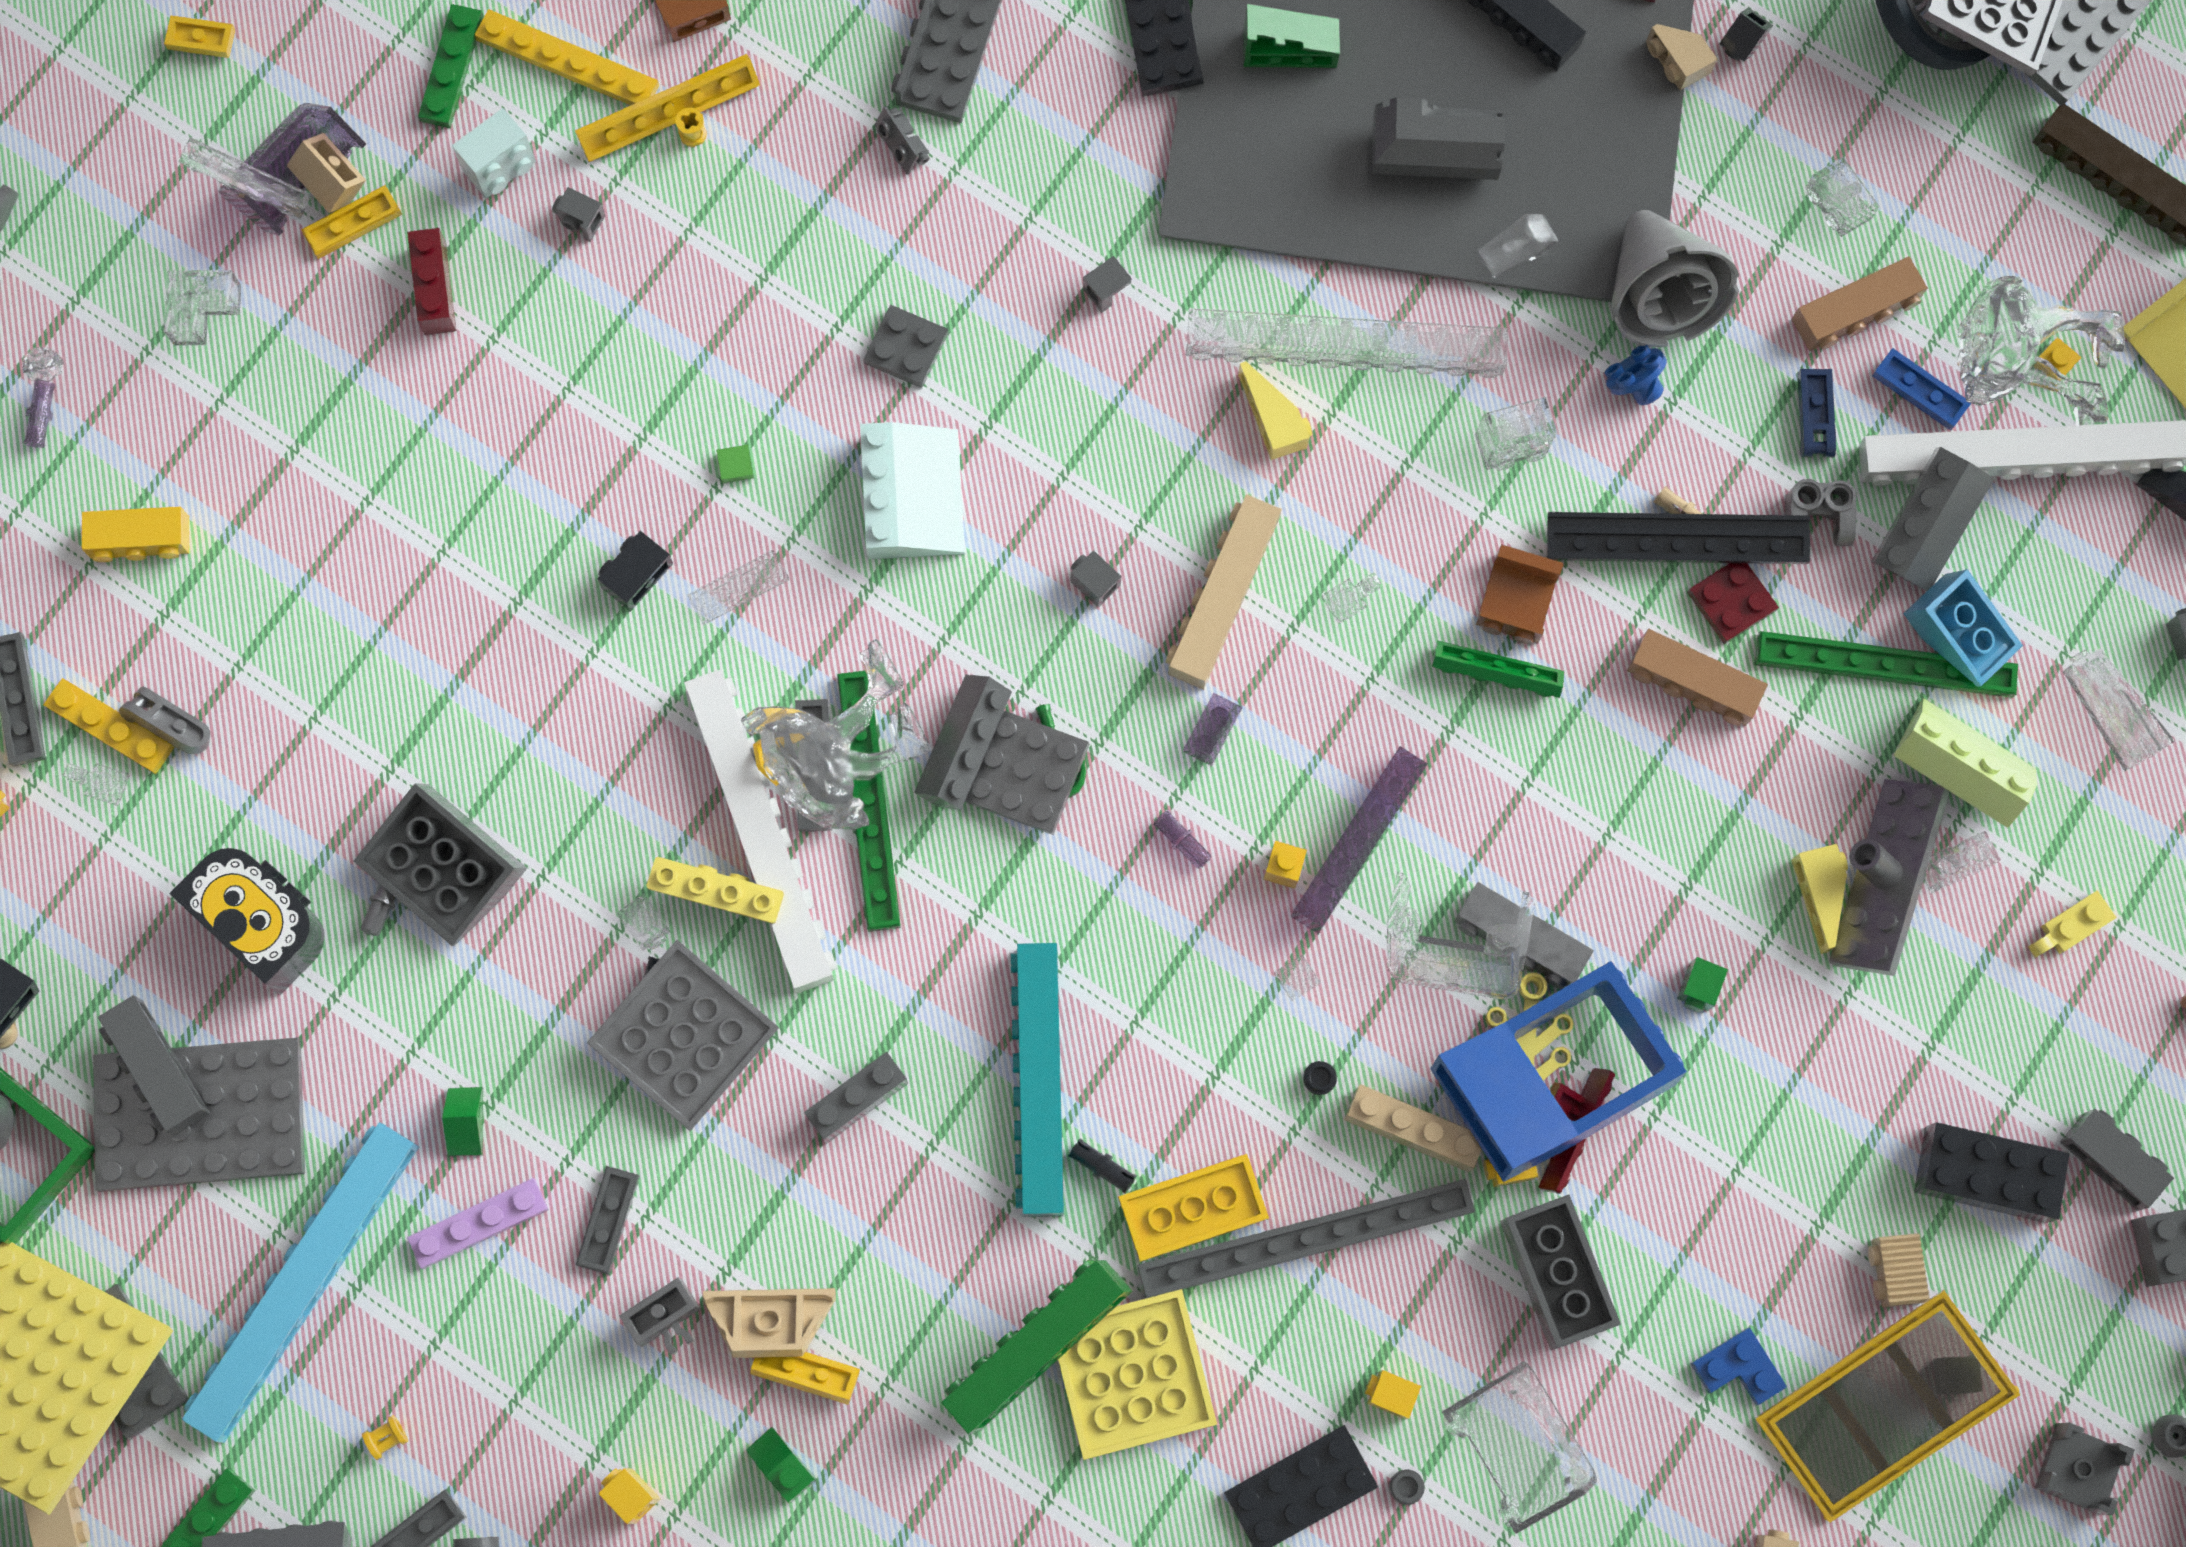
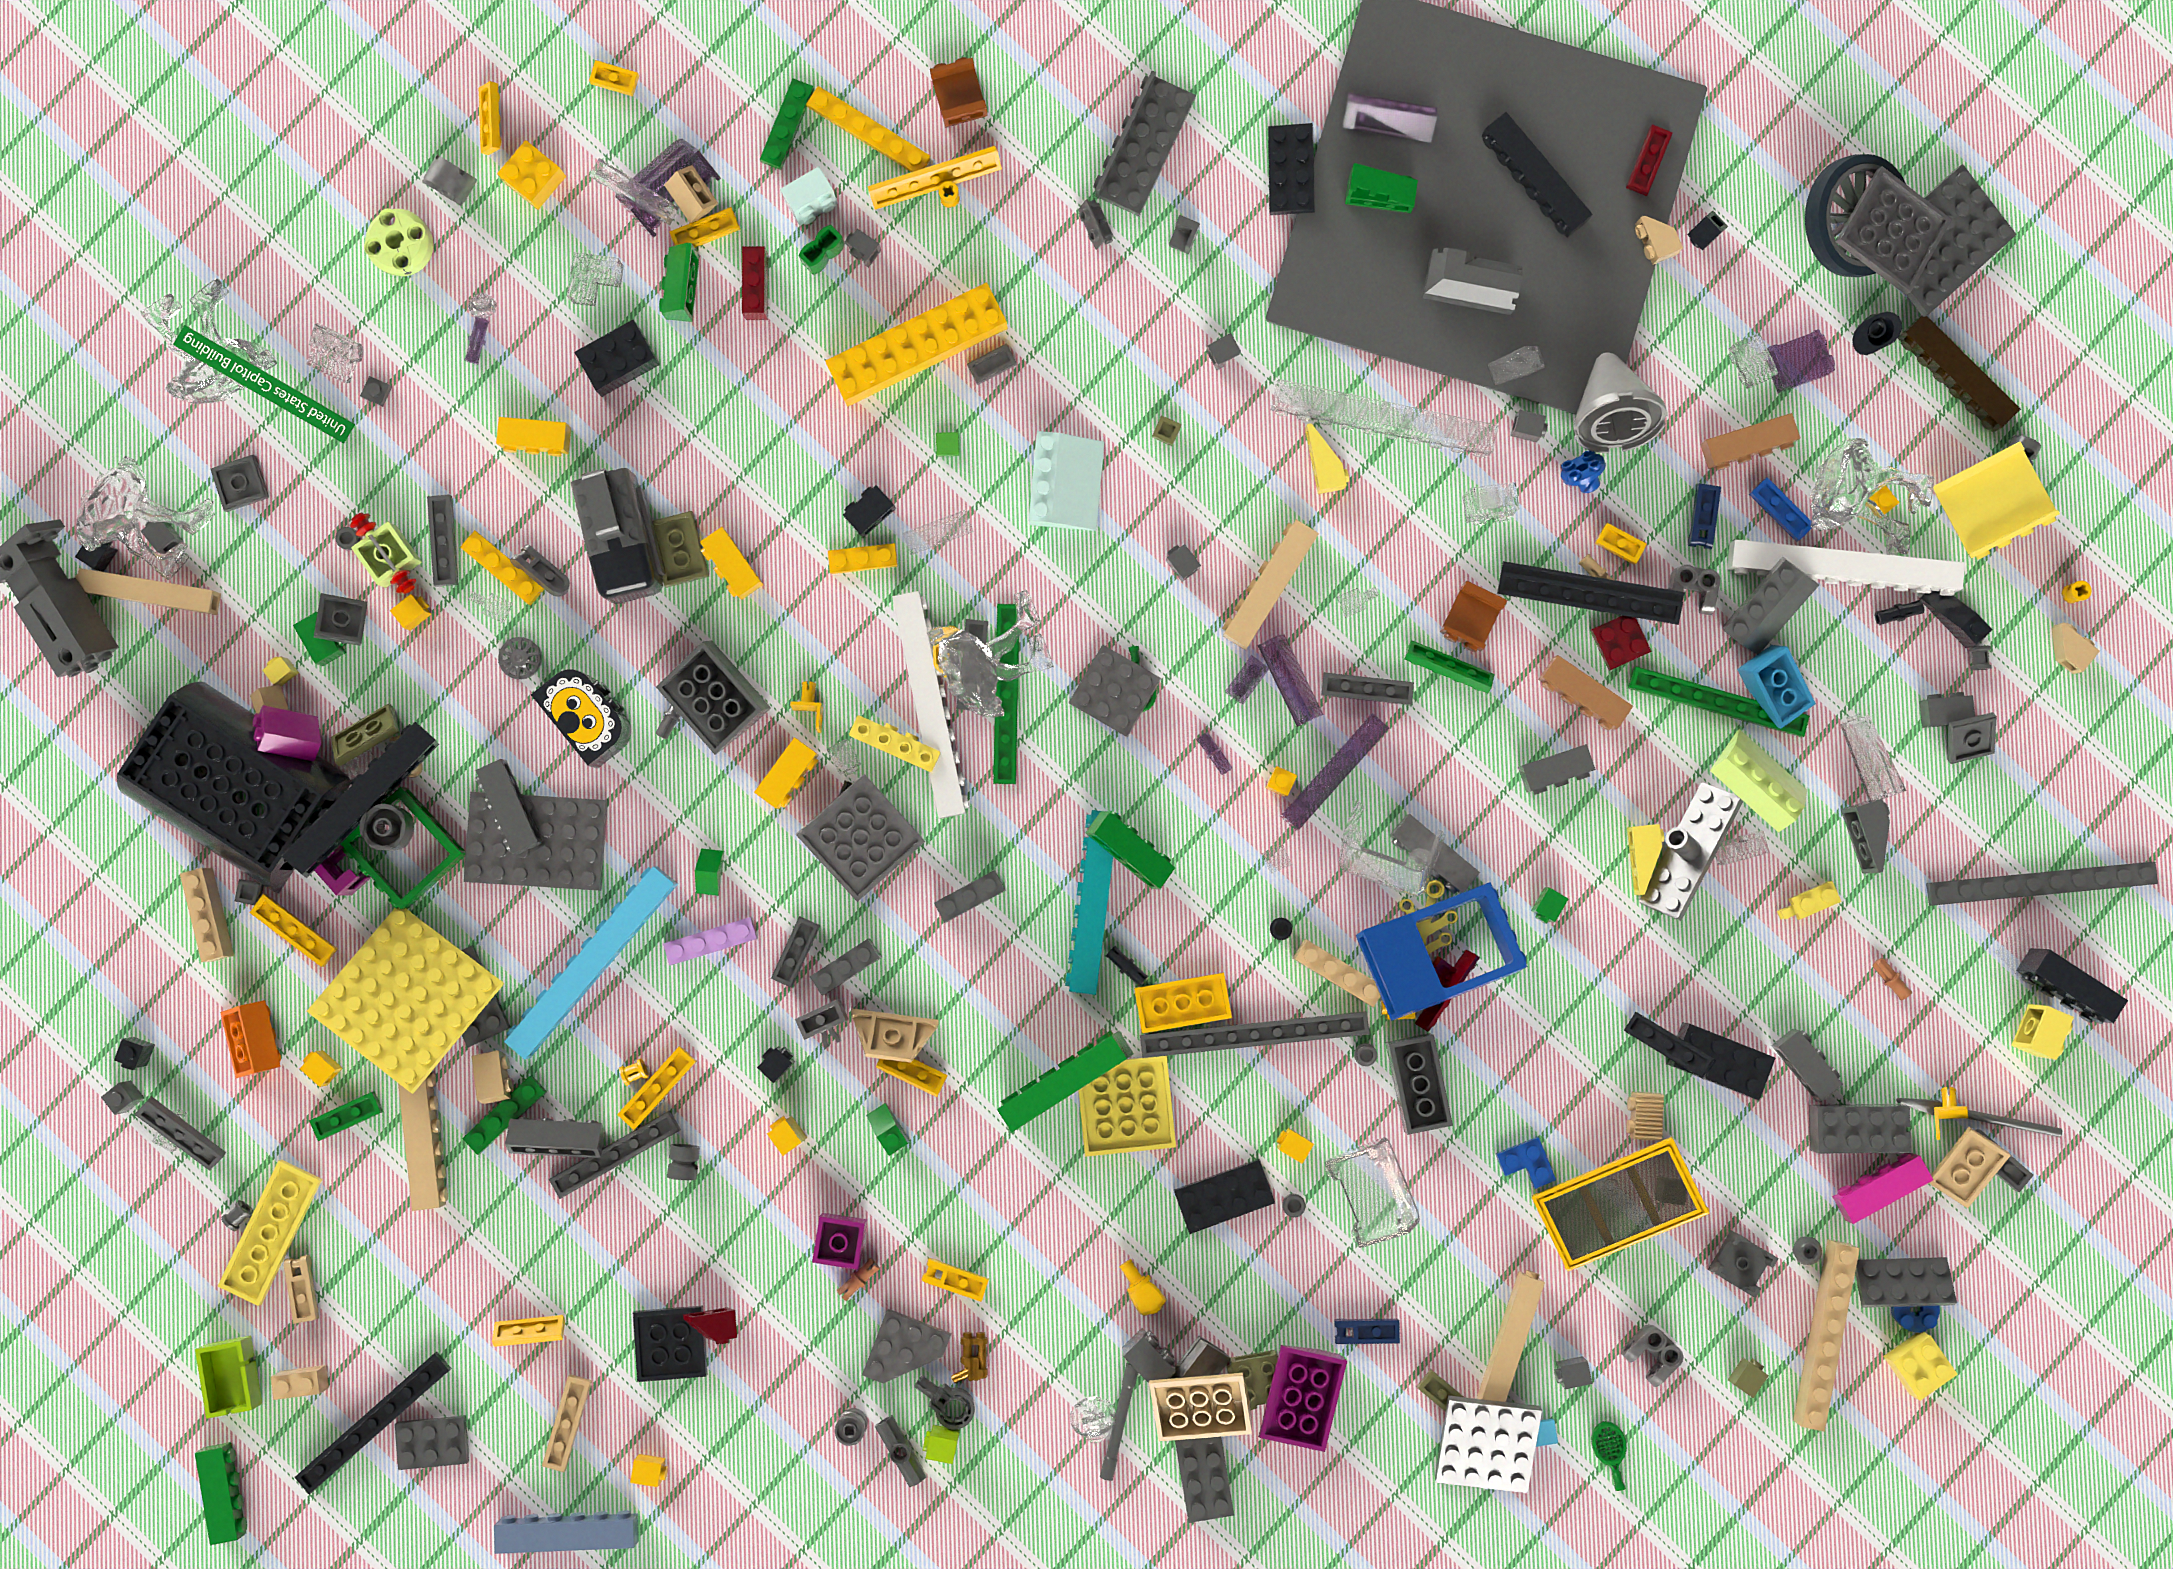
camera: 15 degrees right, 10 degrees up
(27, 112) = (489, 118): none -> yellow plate
(95, 178) = (531, 174): none -> yellow brick
(147, 851) = (519, 658): none -> flat silver wheel
(168, 1477) = (491, 1077): none -> tan brick
(245, 409) = (617, 358): none -> black brick
(274, 650) = (618, 535): none -> piece
(324, 294) = (679, 283): none -> green slope
(364, 663) = (680, 549): none -> olive tile
(422, 1456) = (657, 1087): none -> yellow plate
(443, 672) = (730, 564): none -> yellow brick
(517, 226) = (818, 252): none -> green brick
(563, 959) = (787, 774): none -> yellow brick
(581, 855) = (808, 703): none -> yellow bracket
(599, 1390) = (776, 1063): none -> black brick
(633, 639) = (862, 558): none -> yellow plate
(672, 333) = (917, 344): none -> yellow brick
(685, 1229) = (845, 966): none -> dark grey brick
(783, 346) = (991, 364): none -> flat silver tile
(906, 346) = (1077, 376): dark grey plate -> none
(963, 742) = (1075, 665): dark grey brick -> none
(1028, 136) = (1184, 234): none -> dark grey panel
(1044, 402) = (1166, 430): none -> olive plate
(1082, 991) = (1130, 849): none -> green brick
(1274, 720) = (1290, 680): none -> clear purple brick
(1387, 716) = (1367, 688): none -> dark grey plate
(1474, 1244) = (1365, 1054): none -> flat silver plate
(1550, 325) = (1529, 426): none -> dark grey brick
(1676, 790) = (1557, 769): none -> dark grey brick
(1707, 466) = (1620, 543): none -> yellow plate
(1908, 189) = (1801, 361): none -> clear purple panel
(1914, 1158) = (1670, 1045): none -> black tile
(2002, 136) = (1876, 332): none -> black piece
(2112, 505) = (1899, 612): none -> black pin
(2134, 812) = (1868, 832): none -> dark grey slope

